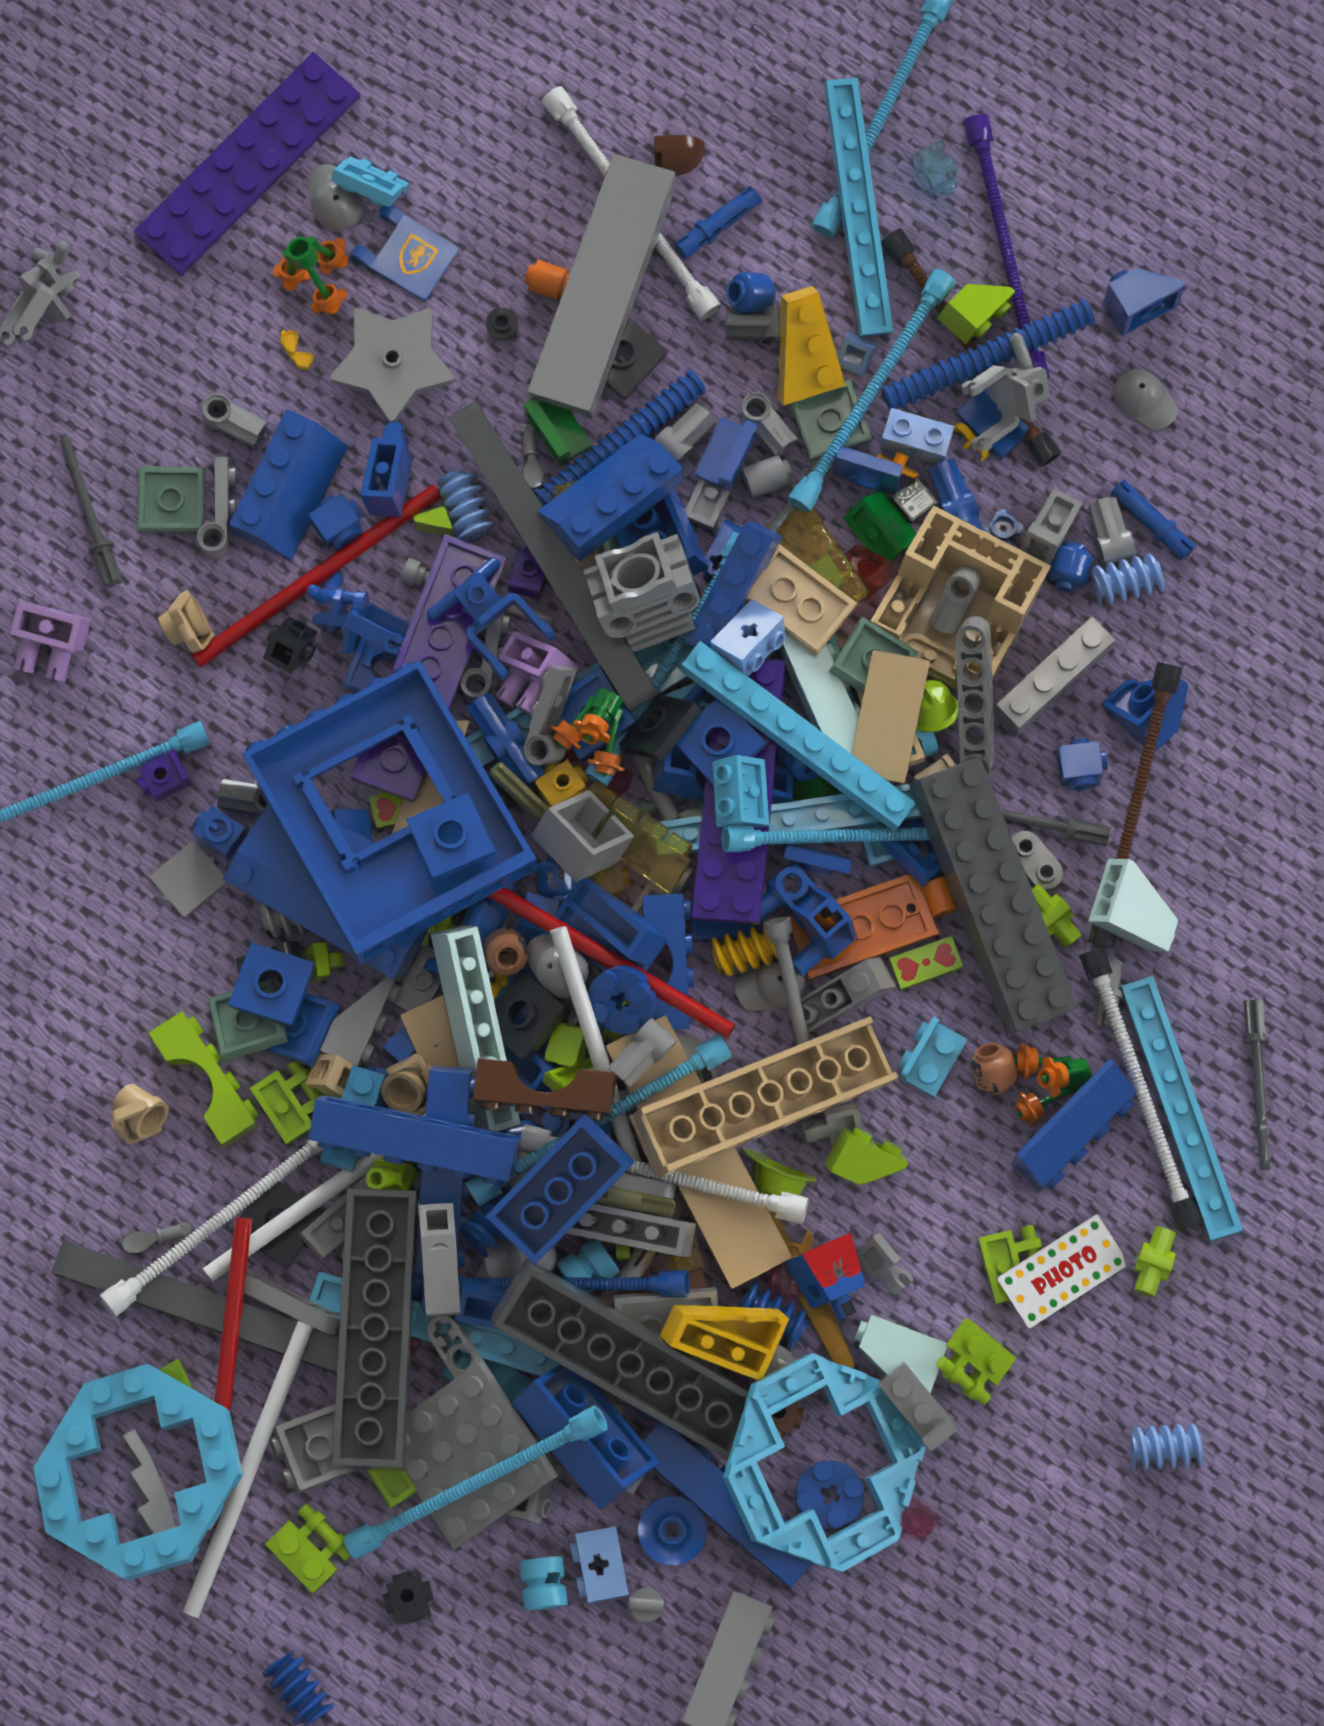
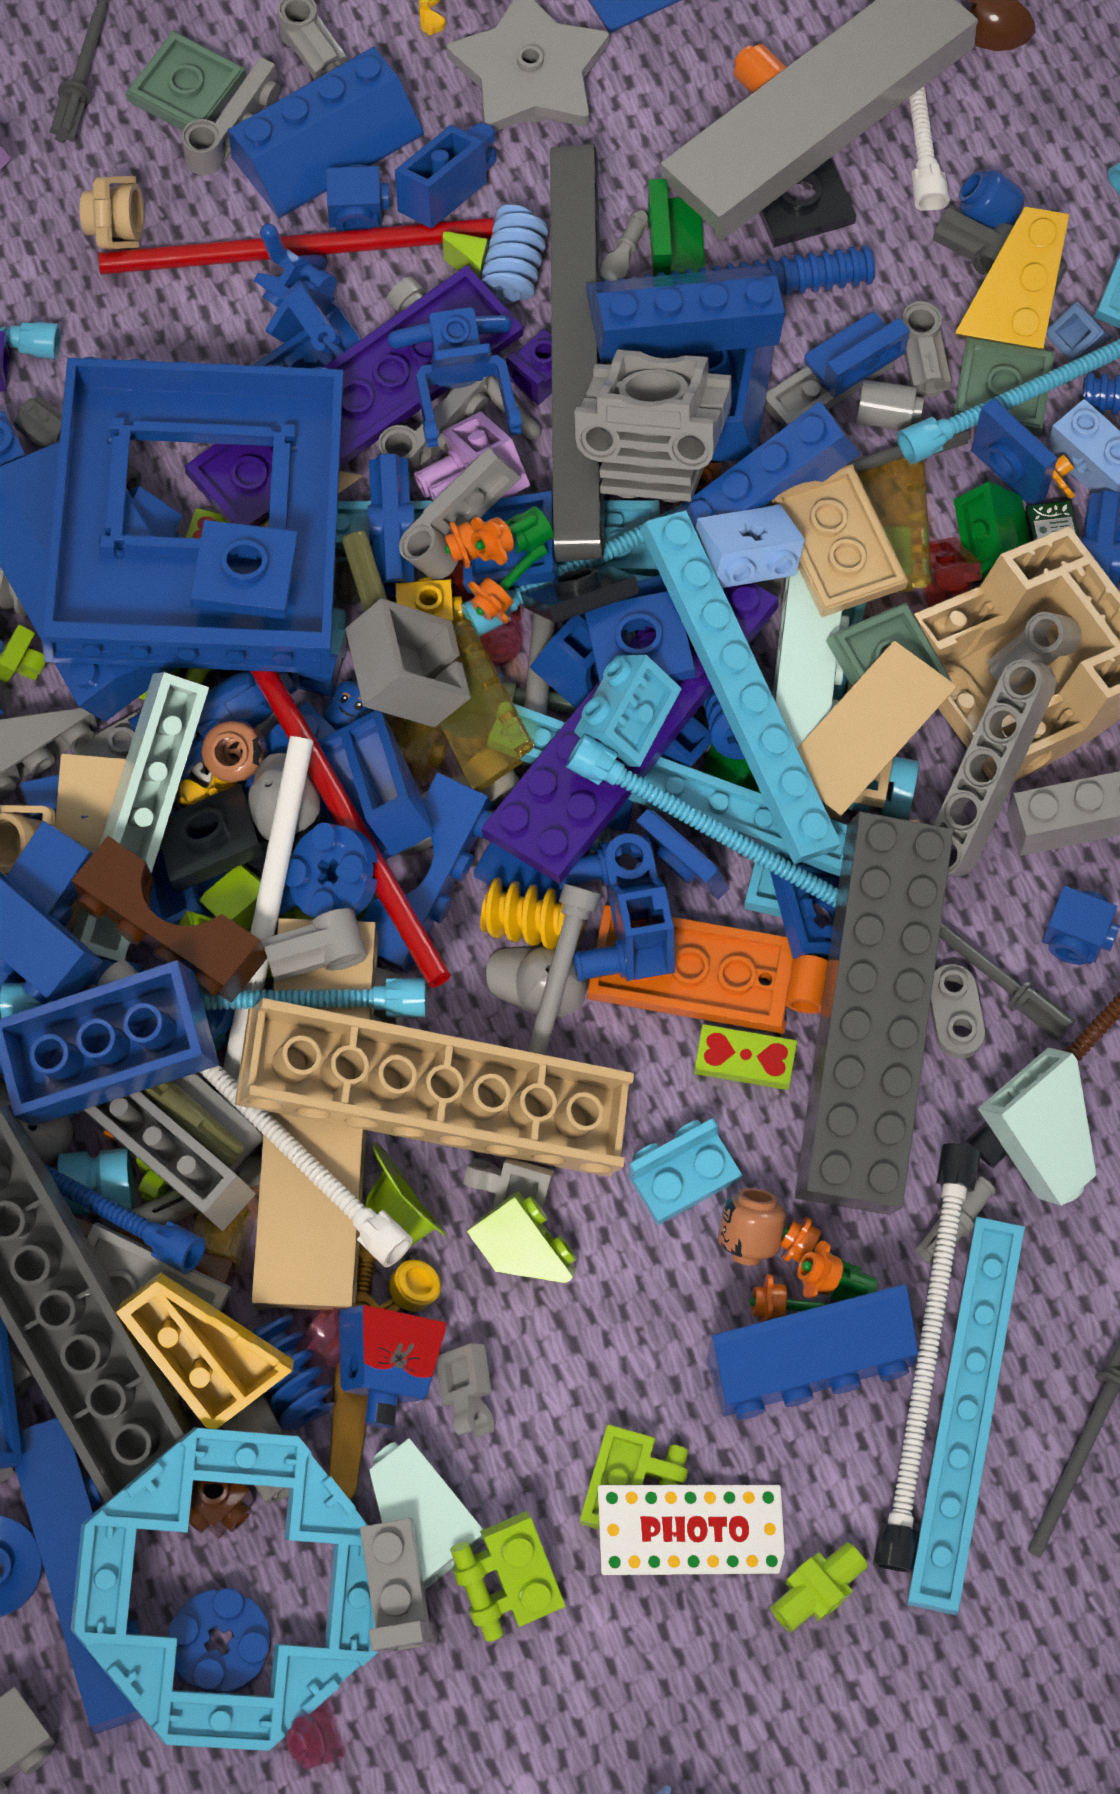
camera: 30 degrees right, 10 degrees down
(290, 644) = (214, 295): black brick -> none
(502, 333) = (681, 104): black plate -> none
(686, 432) = (819, 313): light grey piece -> none
(707, 230) = (996, 114): blue pin -> none
(817, 1220) = (414, 1285): none -> yellow tile
(846, 993) = (624, 1034): light grey slope -> none
(937, 708) = (932, 752): lime piece -> none
(1056, 916) = (941, 1087): lime axle -> none

